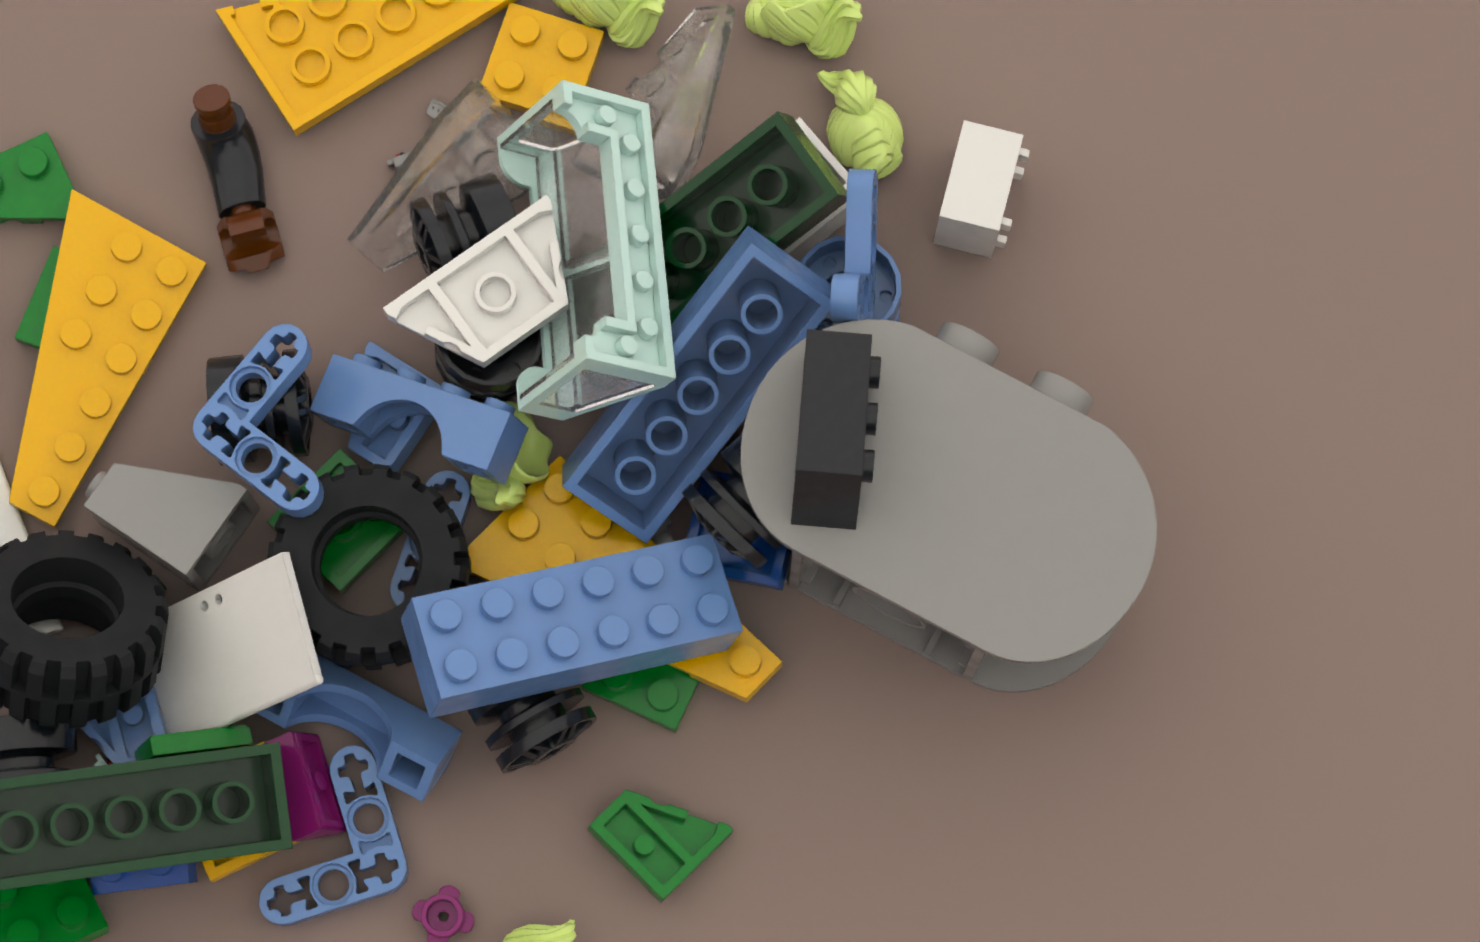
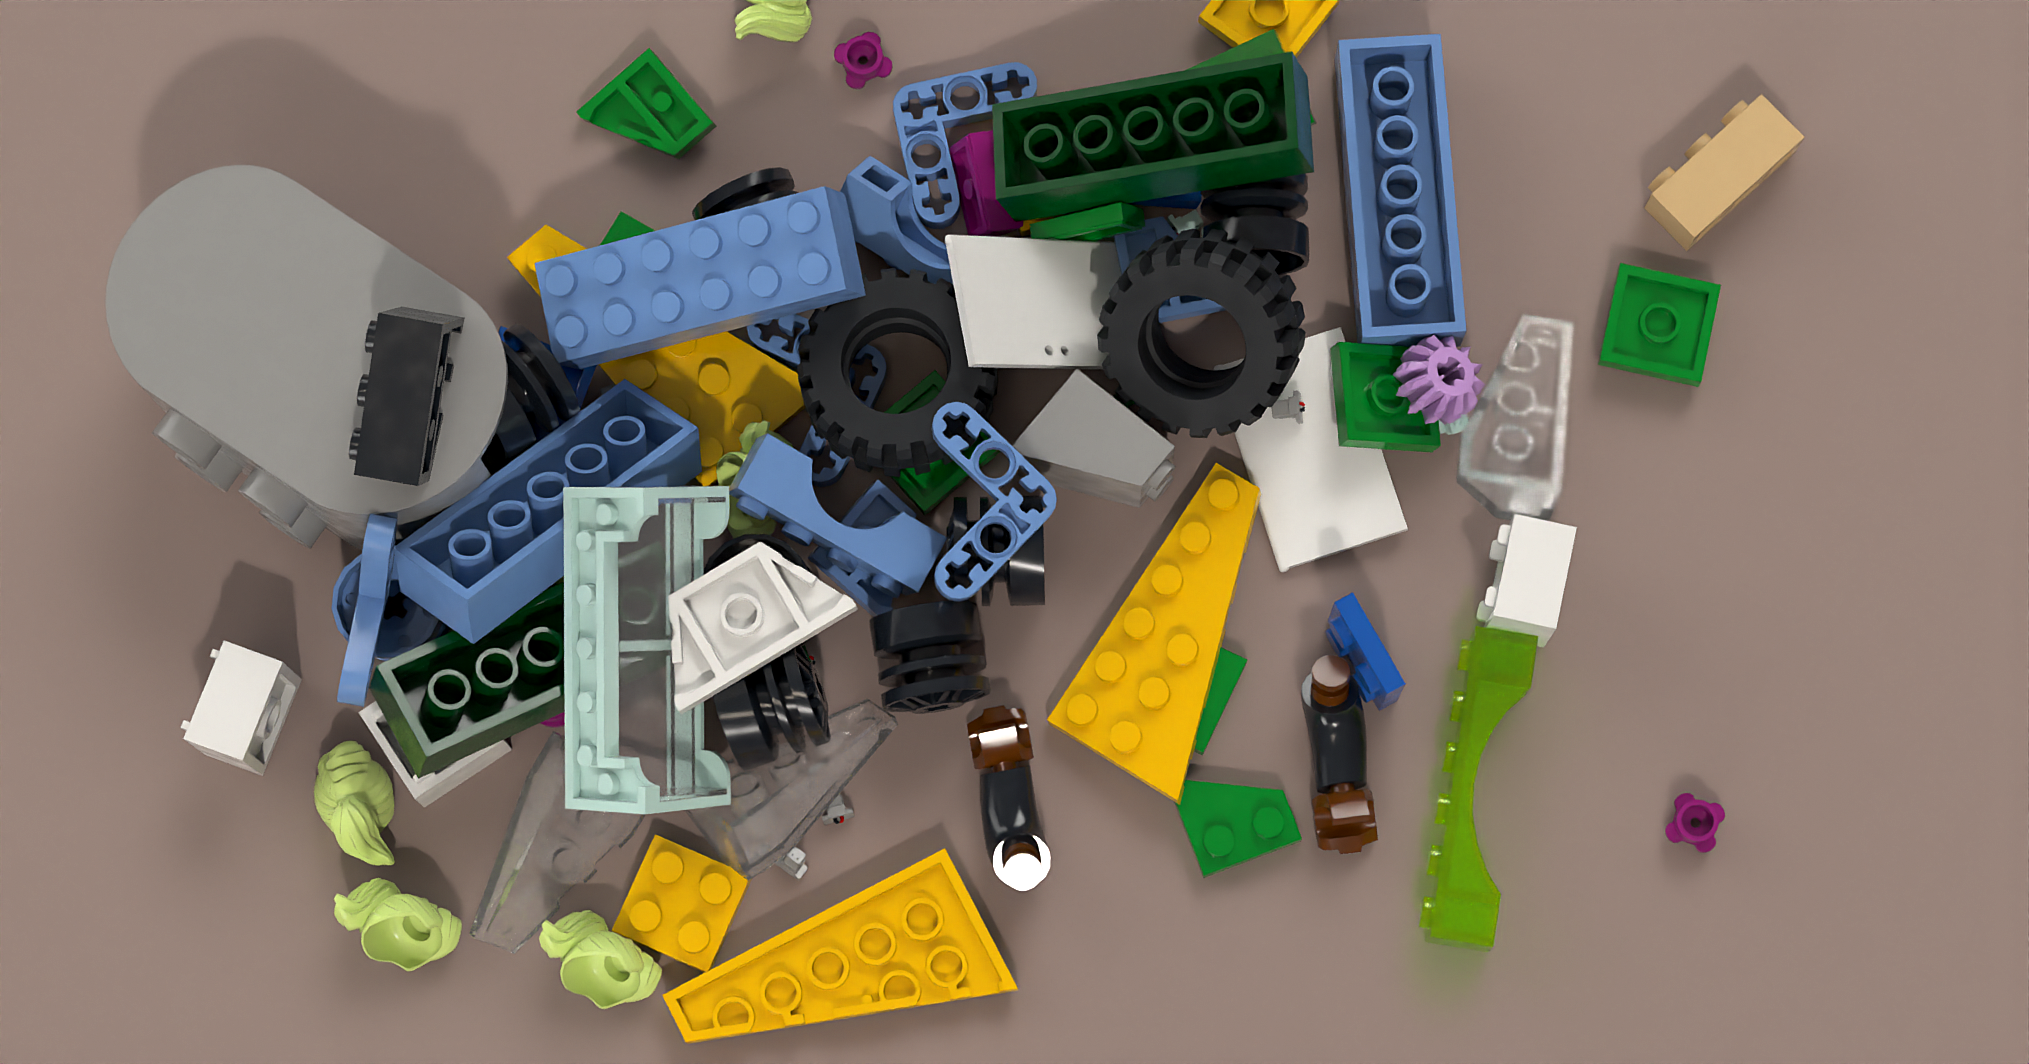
camera: 170 degrees left, 0 degrees up
(321, 295) = (930, 668): none -> black wheel

